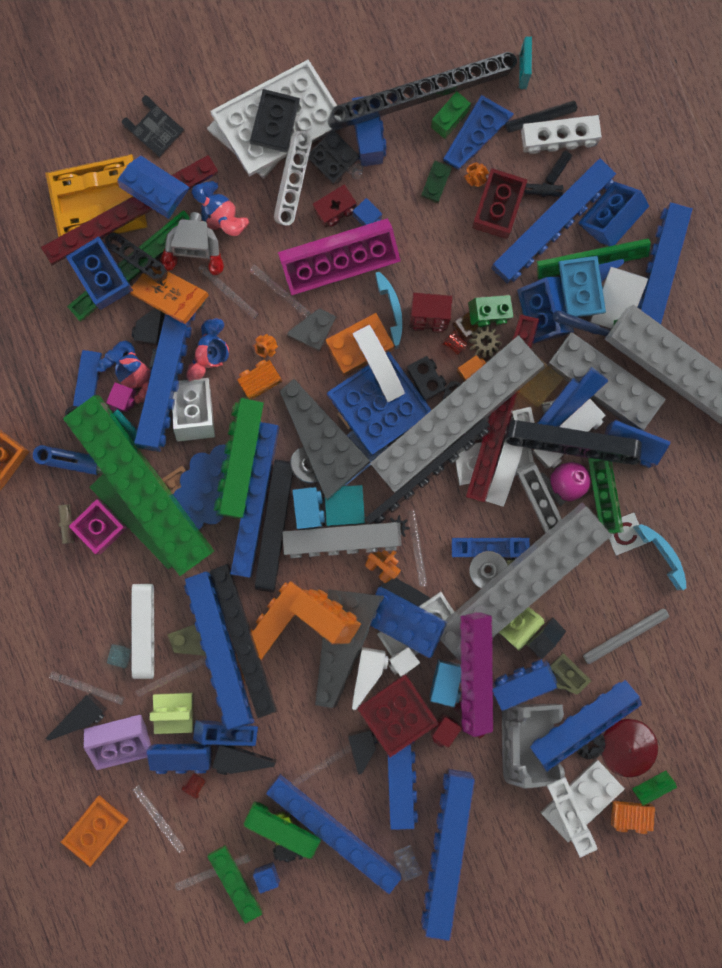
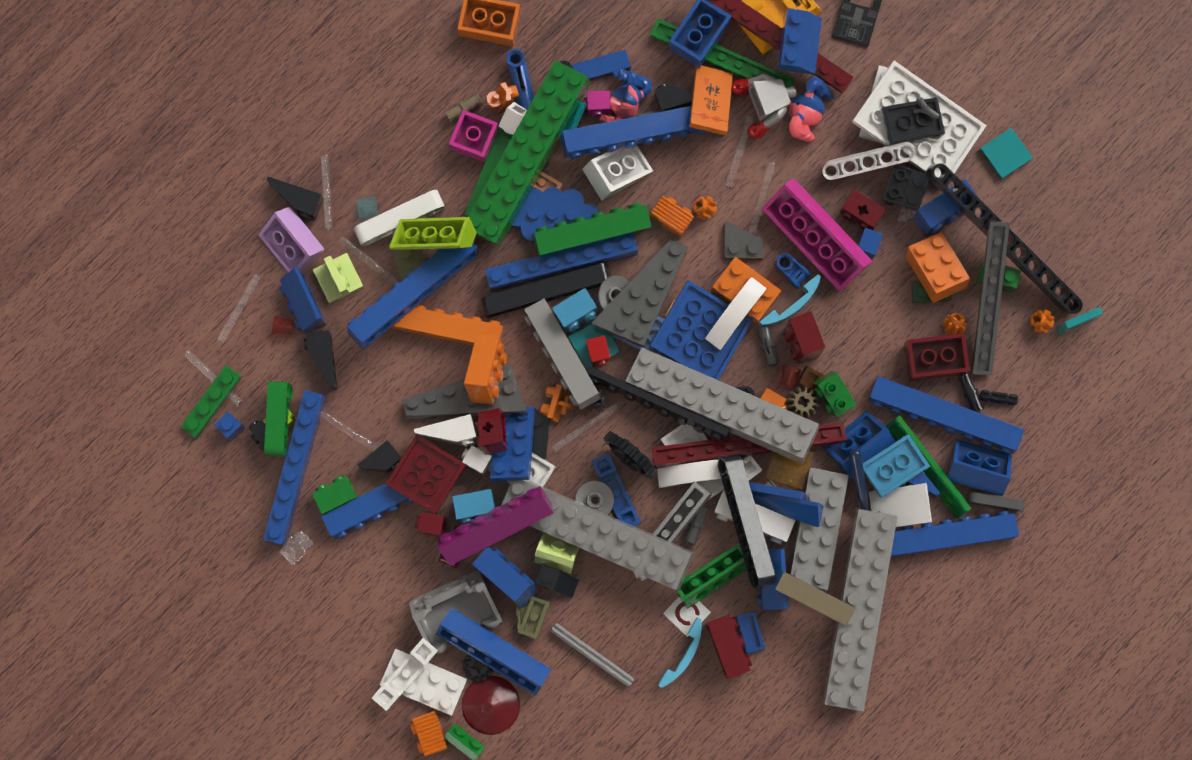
camera: 65 degrees right, 5 degrees down
(73, 483) = (502, 97): none -> orange hips
(94, 831) = (204, 257): orange tile -> none
(99, 483) = (512, 118): none -> white brick
(137, 255) = (730, 57): black beam -> none
(176, 607) = (433, 233): none -> lime slope
(209, 342) = (684, 156): blue hair -> none
(216, 734) = (337, 323): blue slope -> none
(243, 641) = (430, 308): black plate -> none
(271, 103) = (926, 109): none -> dark grey bar
(341, 55) = (1006, 153): none -> teal tile
(354, 504) = (598, 351): none -> red brick
(362, 293) = (792, 271): none -> blue piece
(377, 807) = (335, 494): none -> green brick
(396, 636) = (492, 431): none -> dark red brick
(419, 163) = (937, 267): none -> orange brick
(419, 348) = (768, 346): none -> dark grey pin
(422, 380) = (740, 362): black brick -> none
(448, 855) = (322, 577): blue brick -> none
(465, 519) = (630, 455): none -> black gear
(469, 128) = (990, 297): none -> dark grey plate
(478, 129) = (1013, 308): blue wing -> none
(509, 96) = (1042, 321): none -> orange gear
(542, 116) = (1043, 364): black axle -> none
(570, 481) = (710, 537): dark pink cylinder -> none
(588, 125) = (1030, 373): white brick -> none
(650, 214) = (996, 501): none -> dark grey beam
(668, 485) = (750, 632): none -> blue tile
(673, 413) = (815, 598): none -> dark tan tile
(676, 510) = (729, 646): none -> dark red brick

